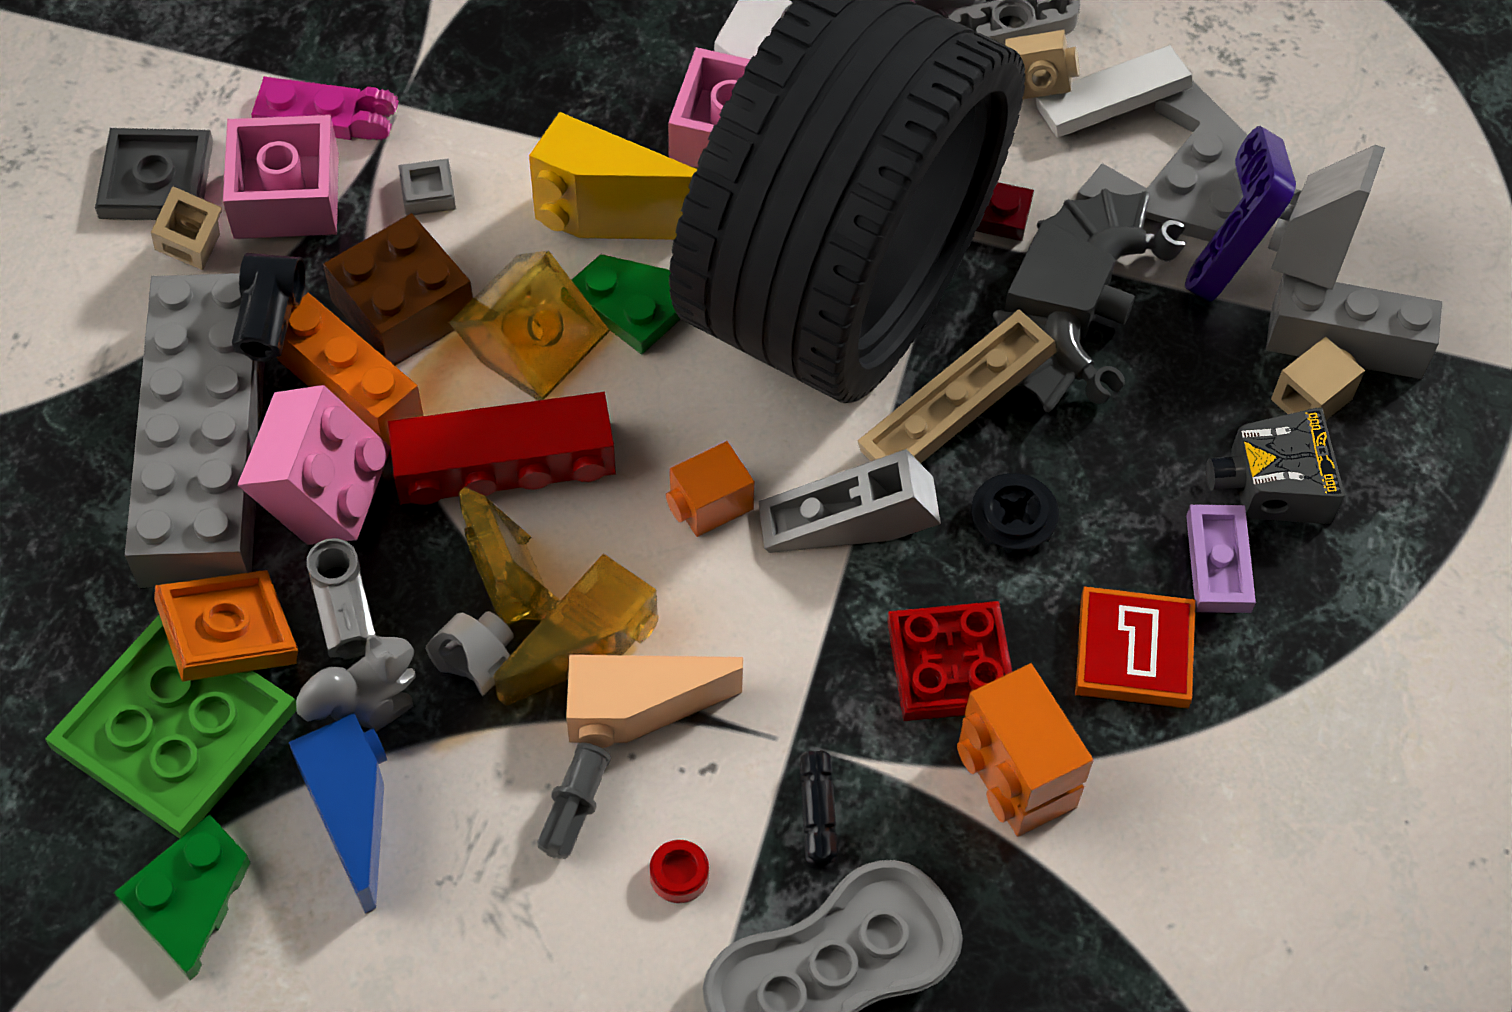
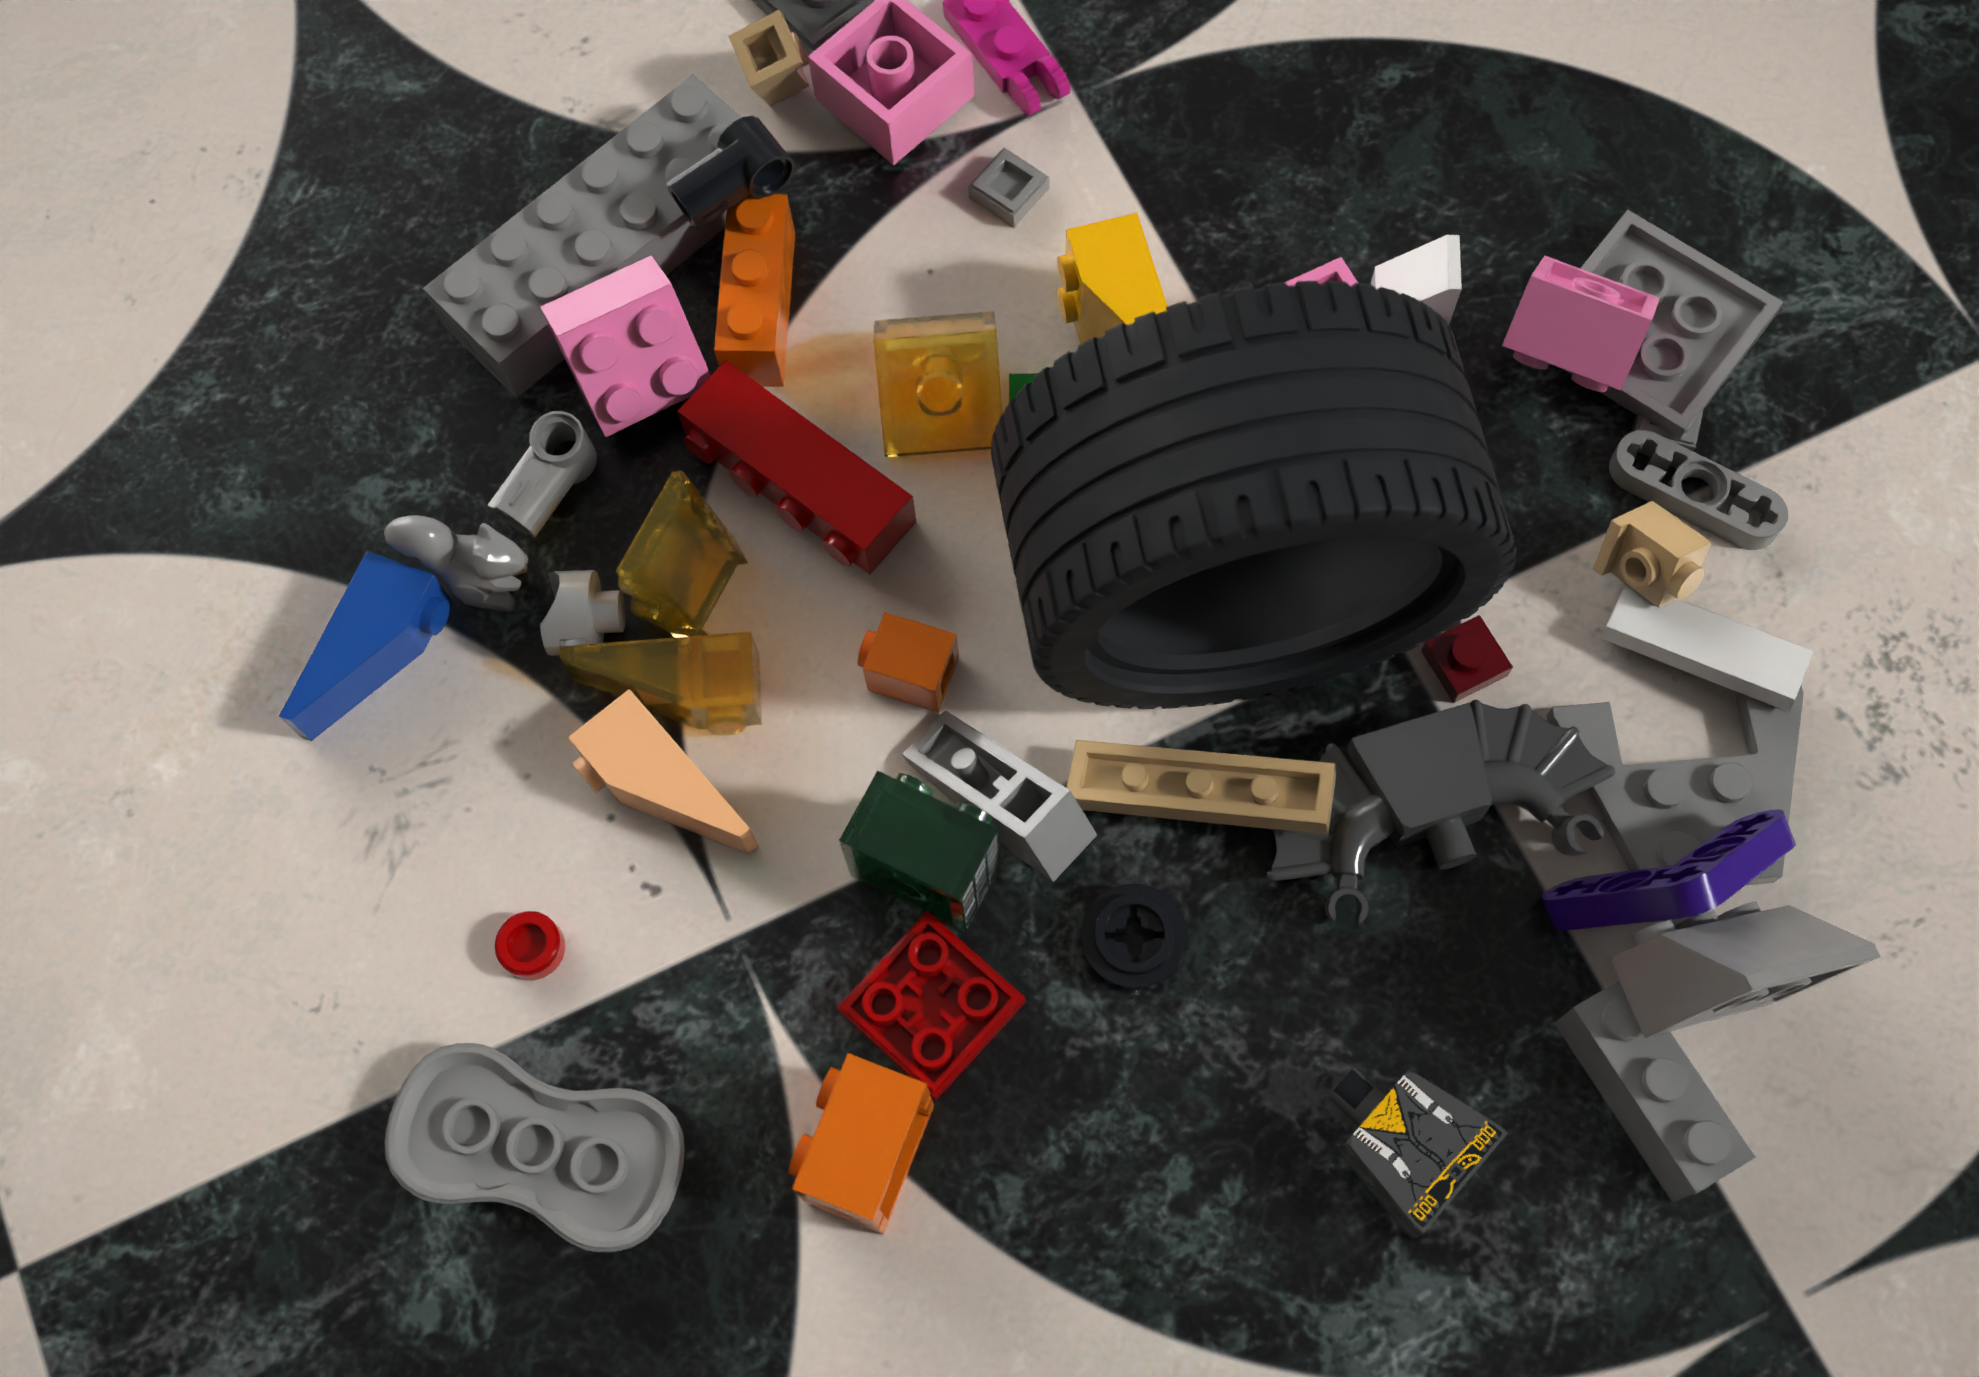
camera: 55 degrees right, 10 degrees up
(169, 741) = (331, 454): bright green plate -> none
(187, 892) = (206, 594): green wing -> none
(225, 625) = (442, 413): orange tile -> none
(398, 289) = (871, 255): reddish brown brick -> none
(573, 800) = (518, 808): dark grey axle -> none
(818, 807) = (682, 1010): black axle -> none
(857, 569) = (922, 848): none -> clear green brick
(1136, 647) = (1092, 1159): red tile -> none
(1220, 559) = (1257, 1164): lavender plate -> none
(1318, 379) = (1551, 1105): tan brick -> none

